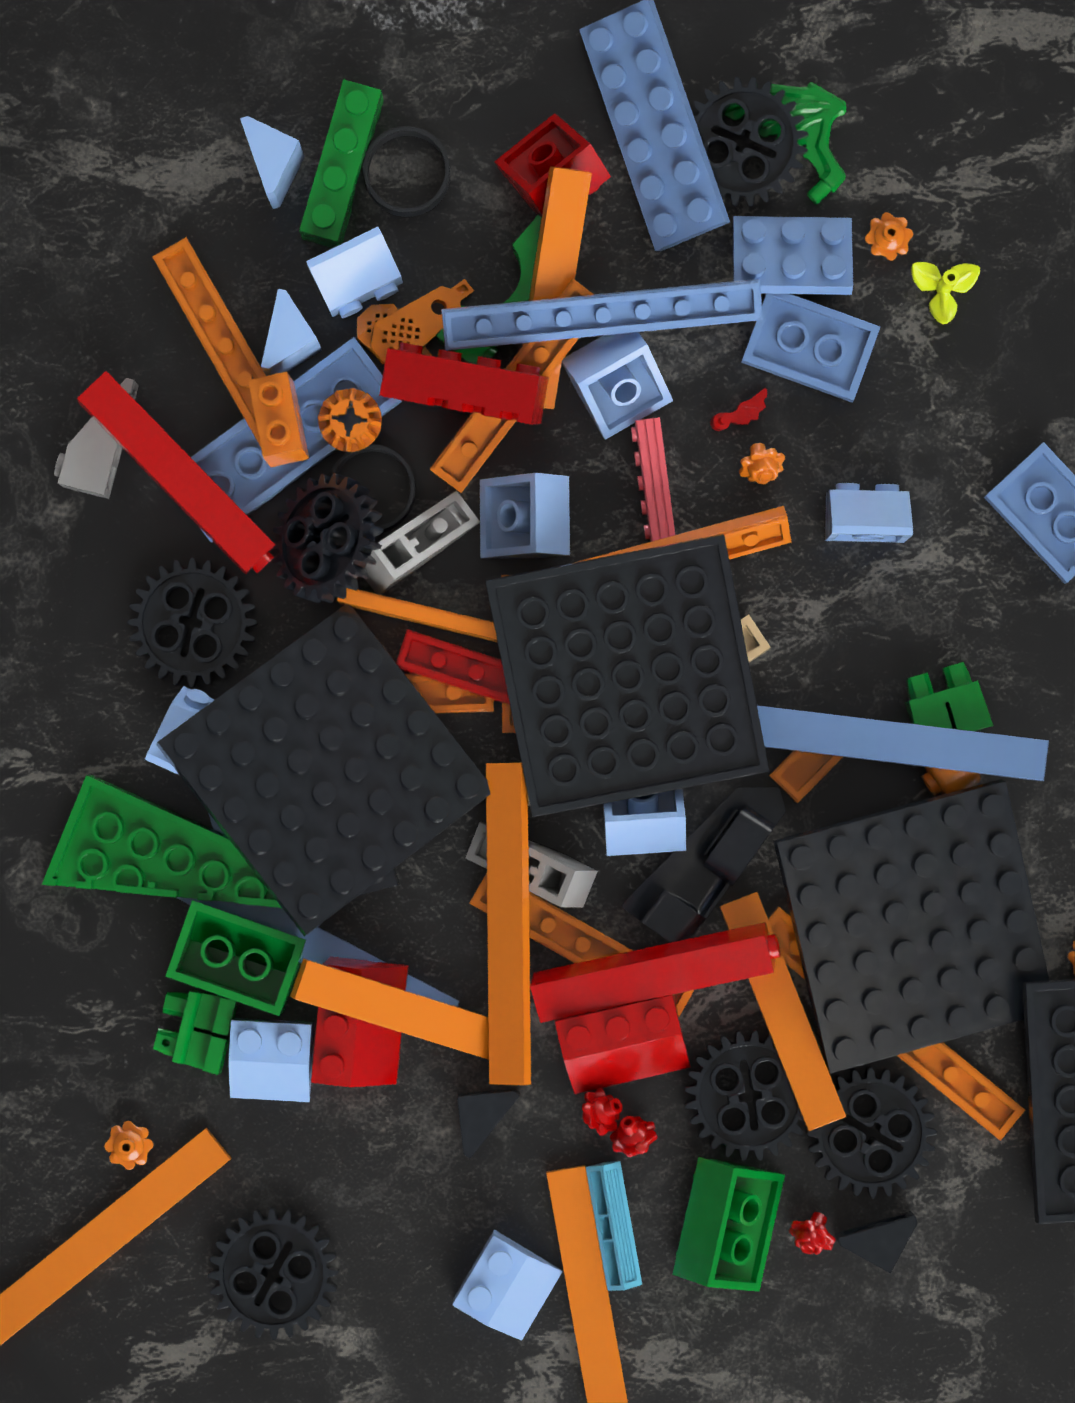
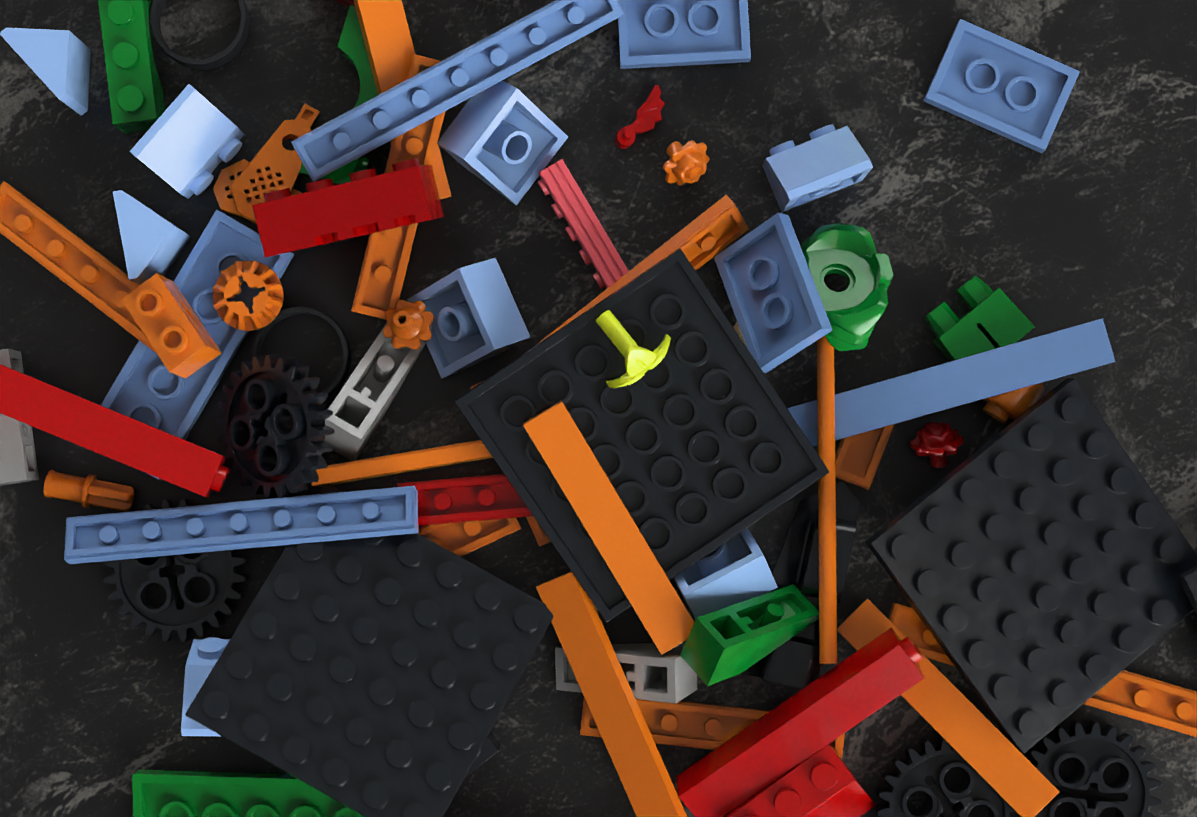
camera: 25 degrees left, 0 degrees up
(147, 526) = (89, 491): none -> orange axle
(265, 608) = (241, 525): none -> medium blue tile
(472, 501) = (408, 324): none -> orange plant
(569, 739) = (610, 526): none -> orange tile
(641, 875) = (744, 633): none -> green slope
(650, 609) = (637, 359): none -> neon yellow plant
(762, 783) = (826, 503): none -> orange piece
(786, 603) = (772, 292): none -> medium blue plate
(843, 649) = (851, 253): none -> green piece
(871, 788) = (937, 442): none -> red plant

